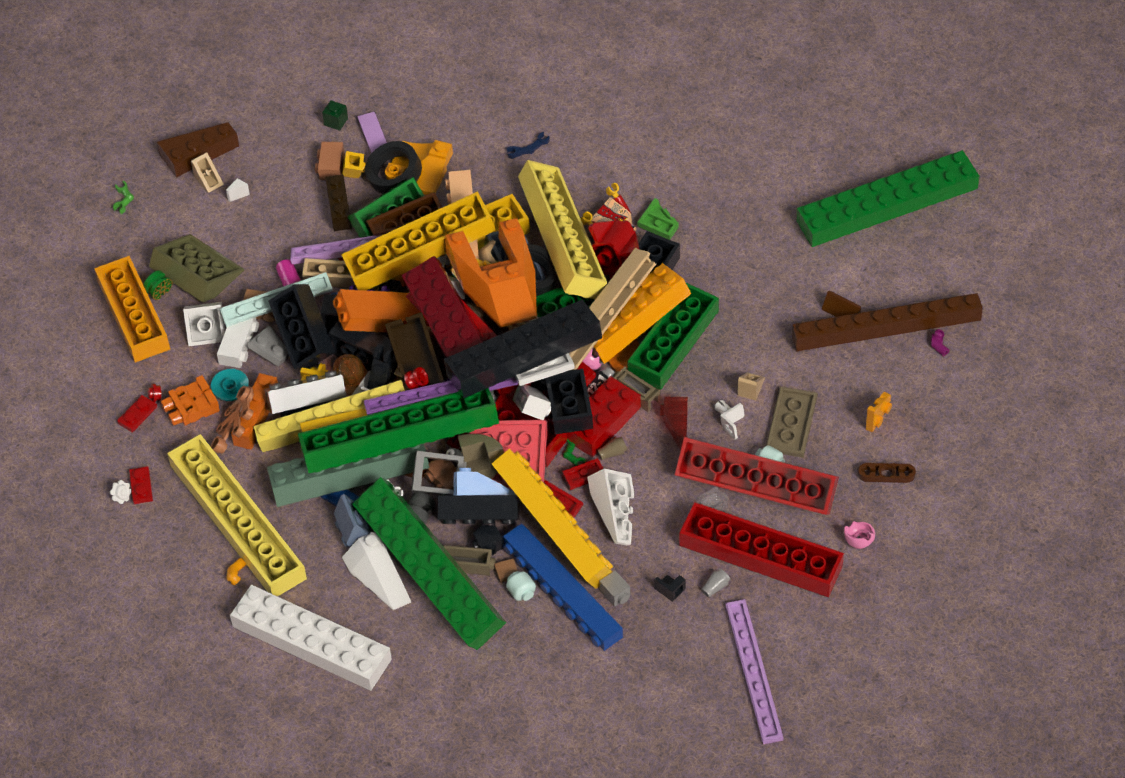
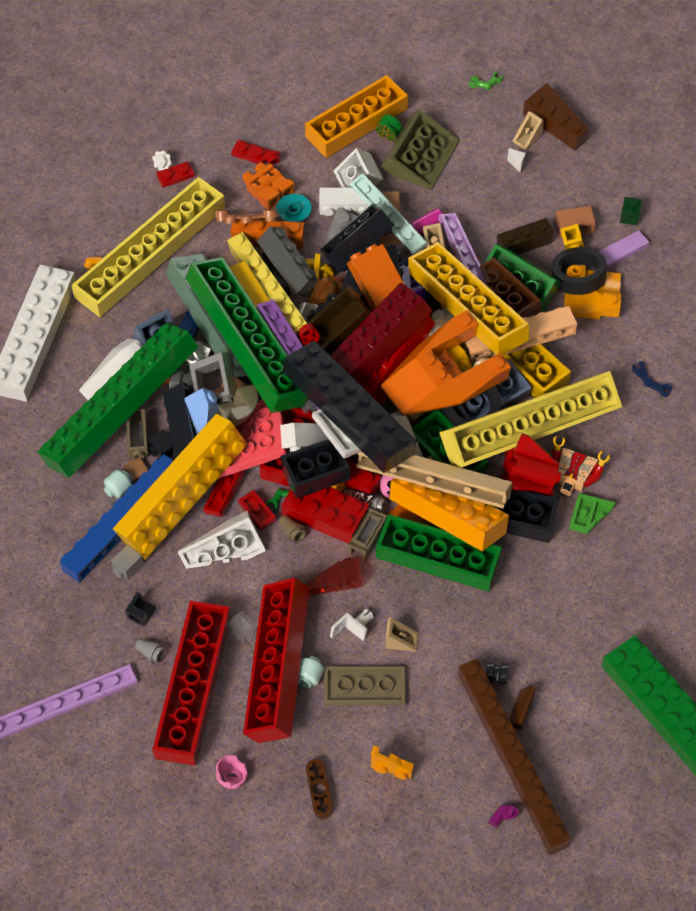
camera: 75 degrees right, 5 degrees up
(805, 314) = (497, 672): none -> black wheel

